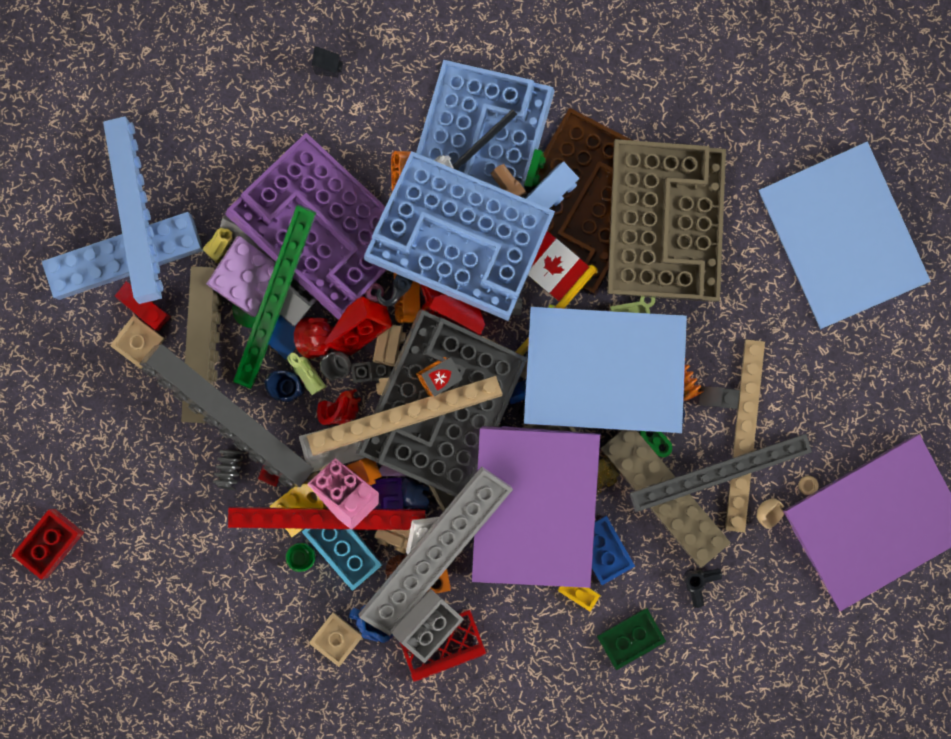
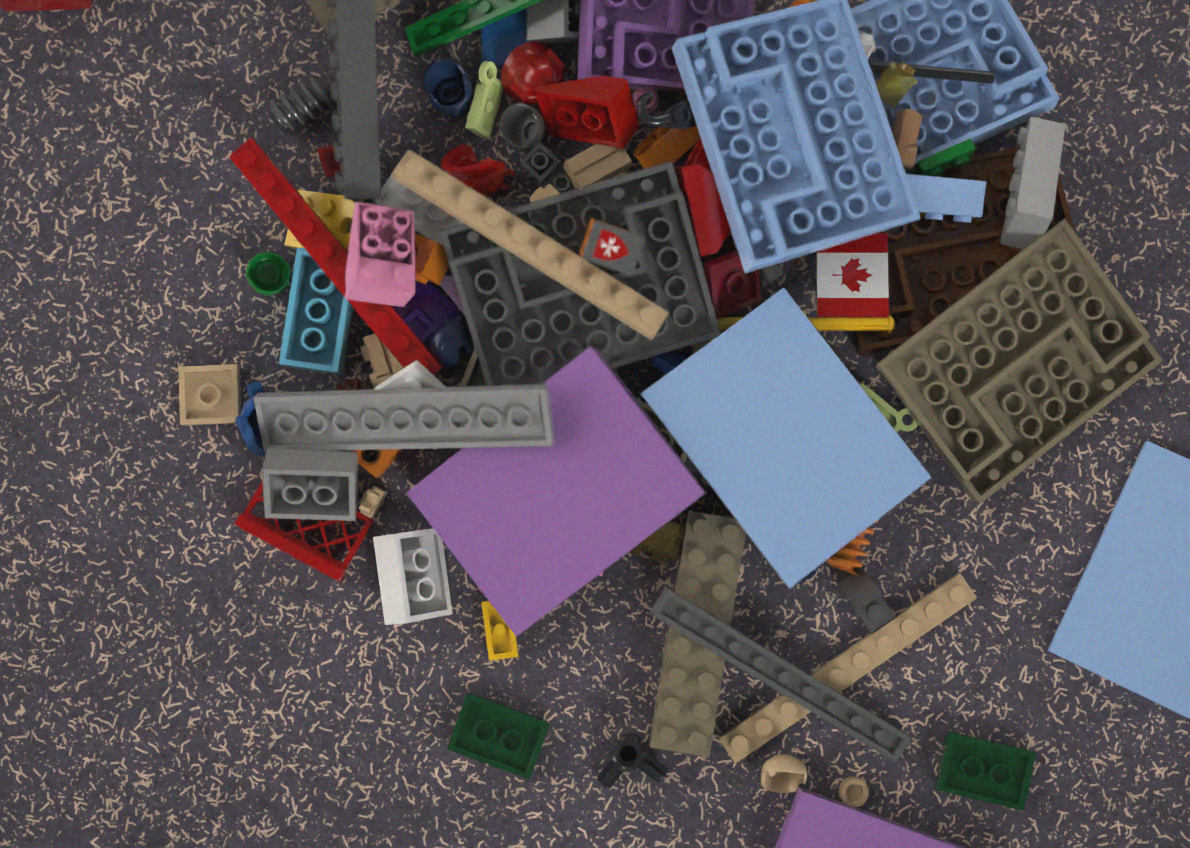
camera: 50 degrees right, 0 degrees up
(459, 602) = (372, 501): none -> tan plate
(475, 162) = (895, 82): none -> clear yellow bracket
(506, 332) = (730, 285): none -> dark red plate
(515, 614) = (412, 576): none -> white slope
(583, 136) = (1033, 182): none -> light grey wedge
(609, 553) = (574, 625): blue plate -> none
(654, 442) = (753, 568): green plate -> none
(852, 411) = (985, 770): none -> dark green plate

